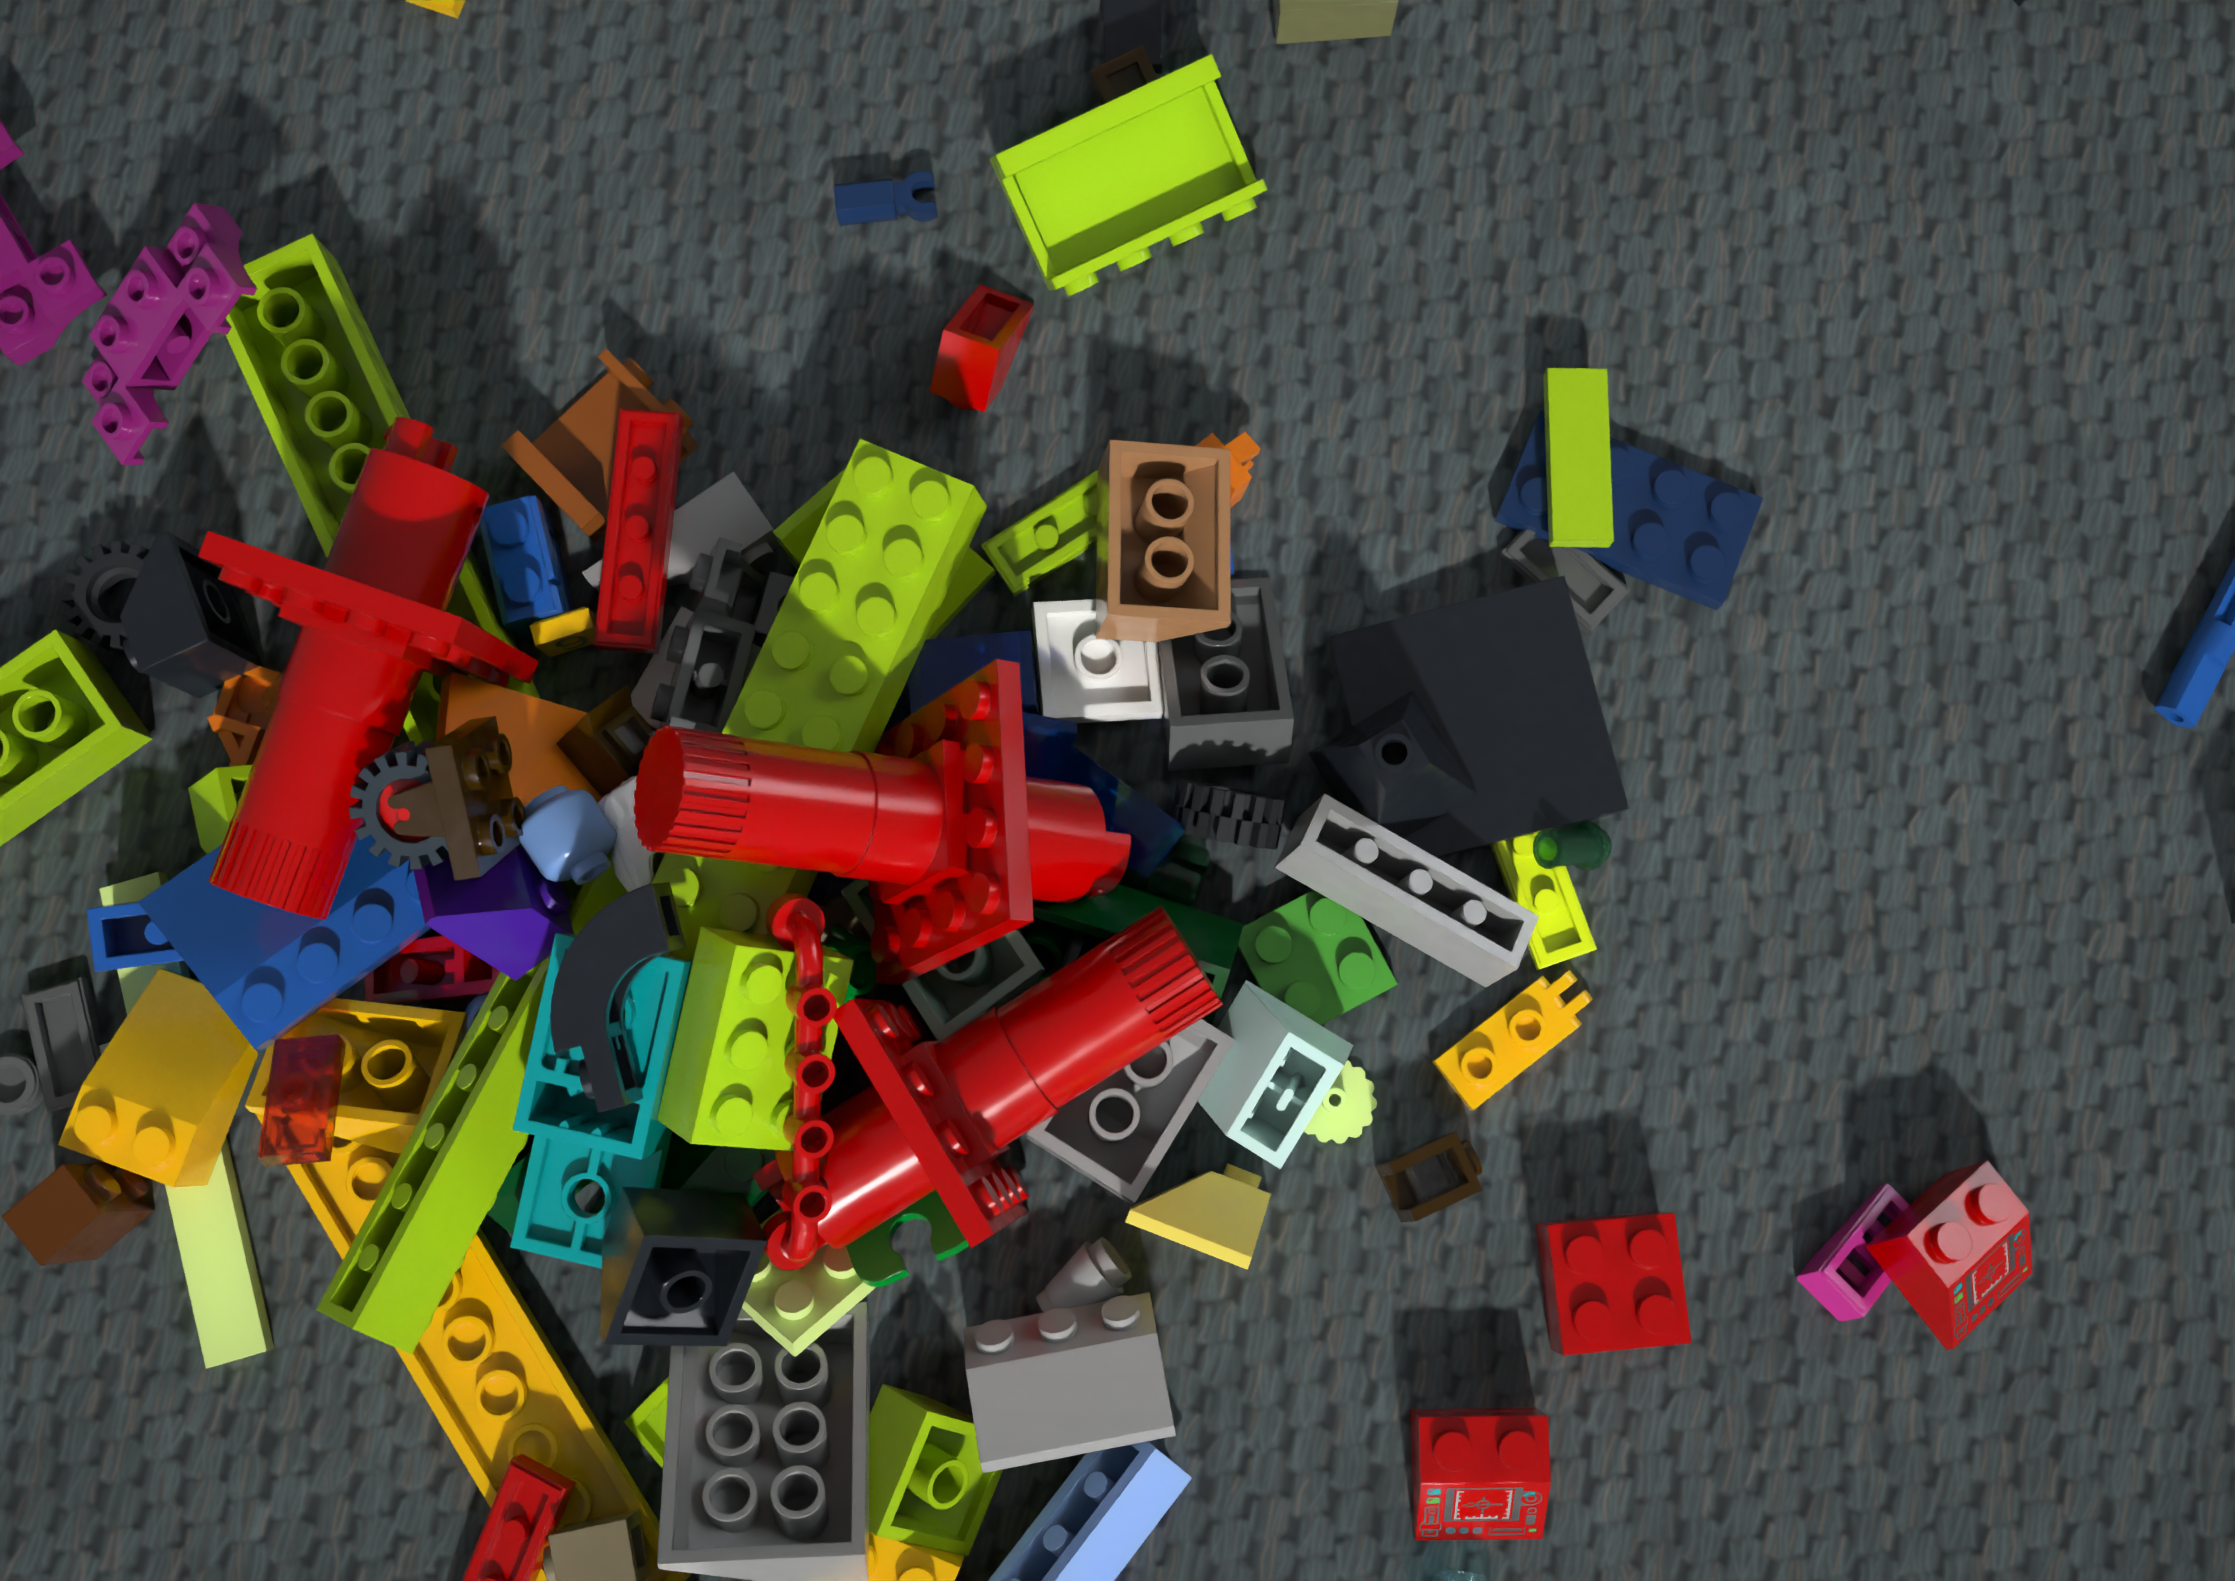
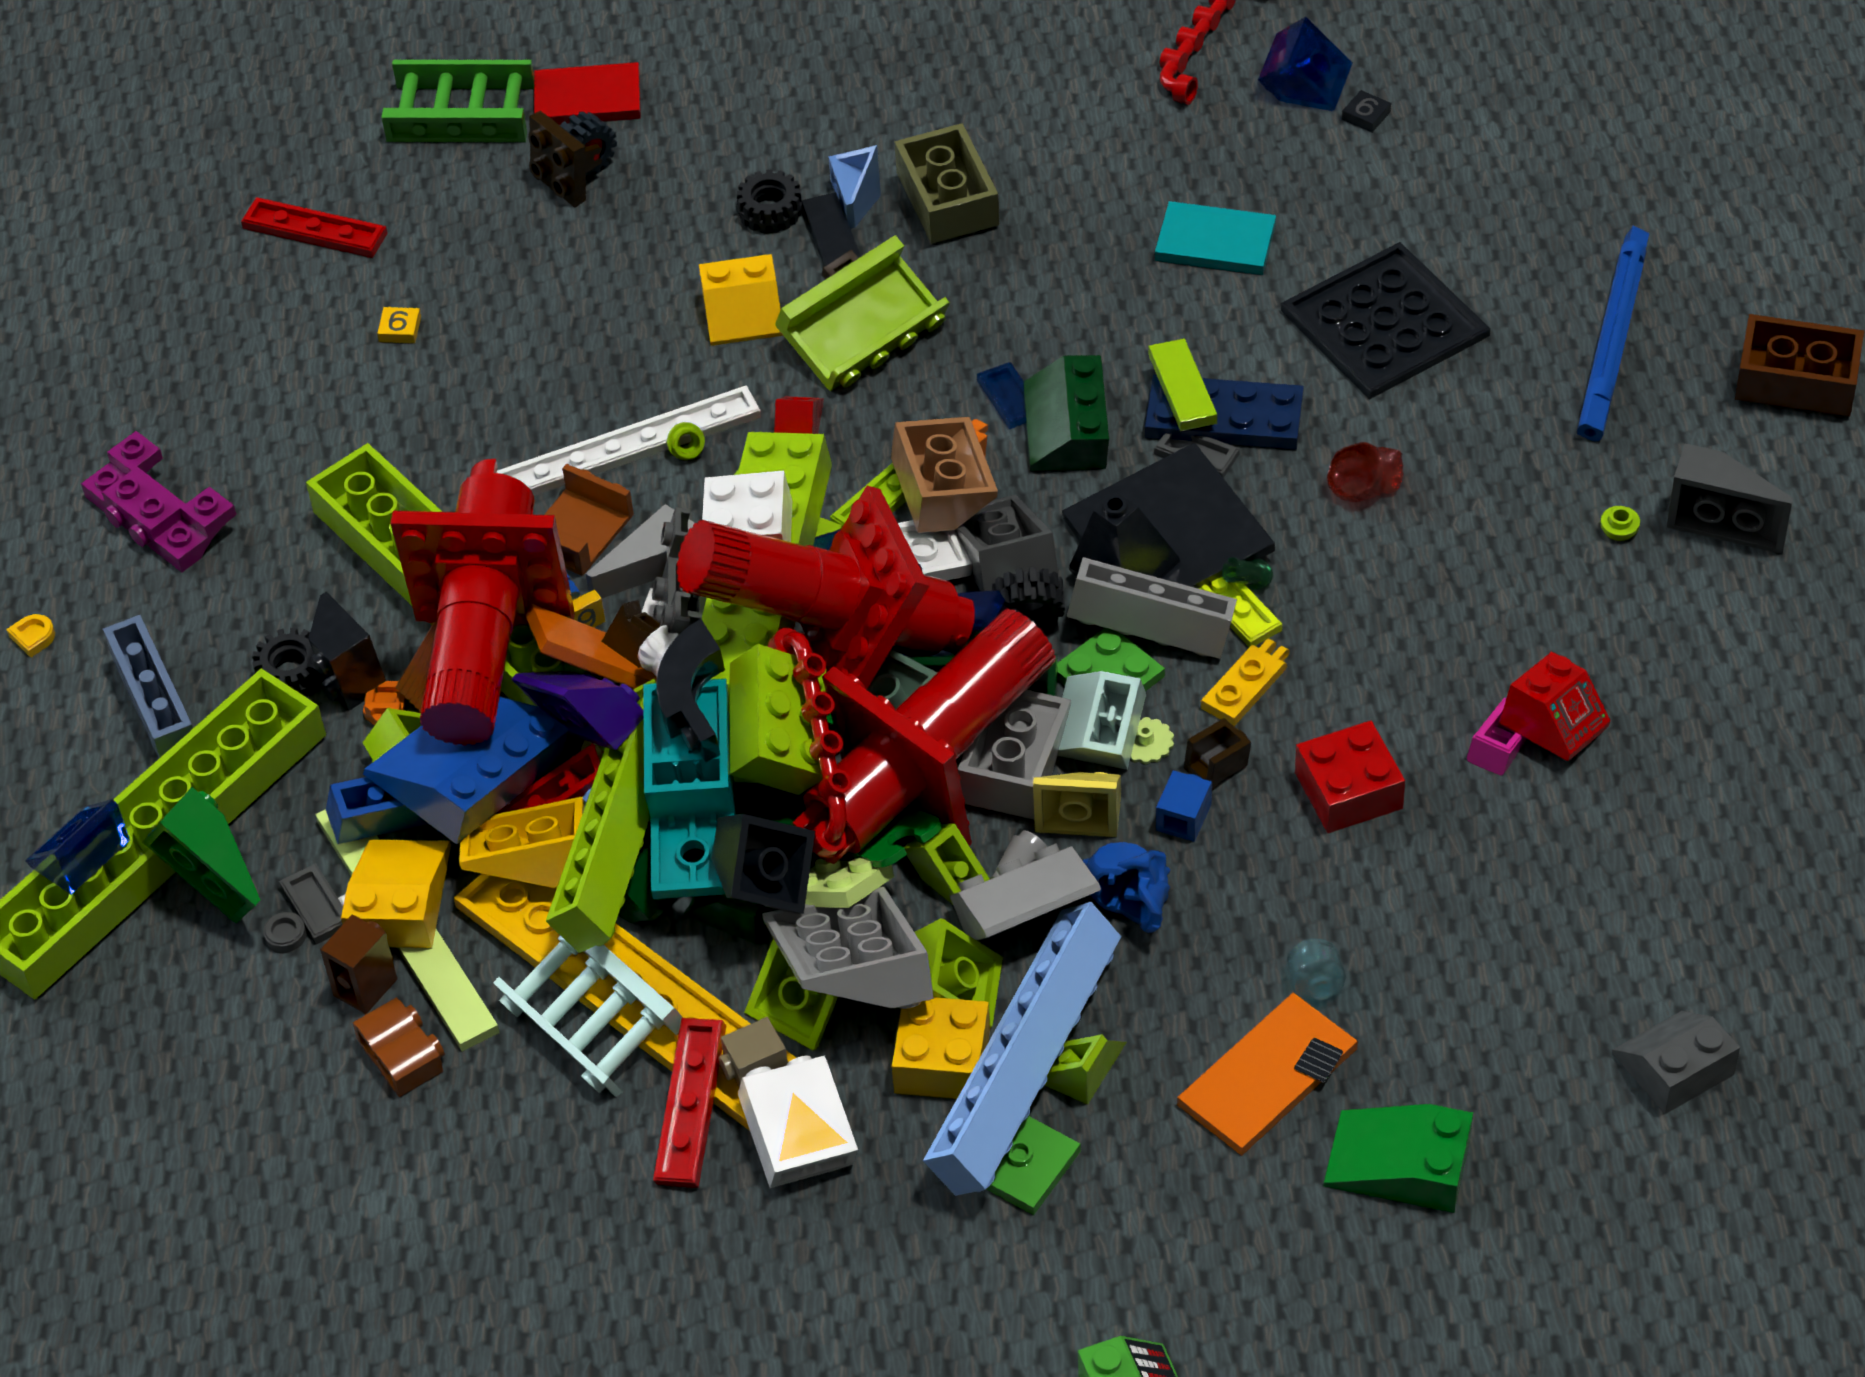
camera: 15 degrees left, 30 degrees down
(116, 1351) = (399, 1046): none -> dark orange brick
(162, 323) = (287, 503): magenta bracket -> none
(302, 1100) = (498, 843): clear red plate -> none
(442, 801) = (548, 639): dark brown plate -> none
(453, 1377) = (627, 990): none -> light aqua fence
(567, 835) = (629, 660): medium blue head -> none
(639, 531) = (616, 542): red tile -> none
(696, 316) = (635, 440): none -> white tile
(798, 649) = (750, 503): none -> white brick
(805, 352) = (696, 443): none -> lime plate
(884, 200) = (714, 366): dark blue bar -> none
(955, 84) = (740, 299): none -> yellow slope
(985, 1280) = (944, 861): none -> lime slope
(1233, 1377) = (1131, 882): none -> blue head
(1314, 380) = (1005, 392): none -> clear blue tile
(1354, 1255) = (1183, 805): none -> blue brick
(1386, 457) = (1067, 415): none -> dark green slope
(1479, 1473) = (1302, 893): red slope -> none
(1714, 157) = (1215, 238): none -> teal tile
(1802, 704) = (1365, 472): none -> clear red hair
(1927, 396) = (1385, 320): none -> black tile
(2149, 908) = (1622, 529): none -> lime plate

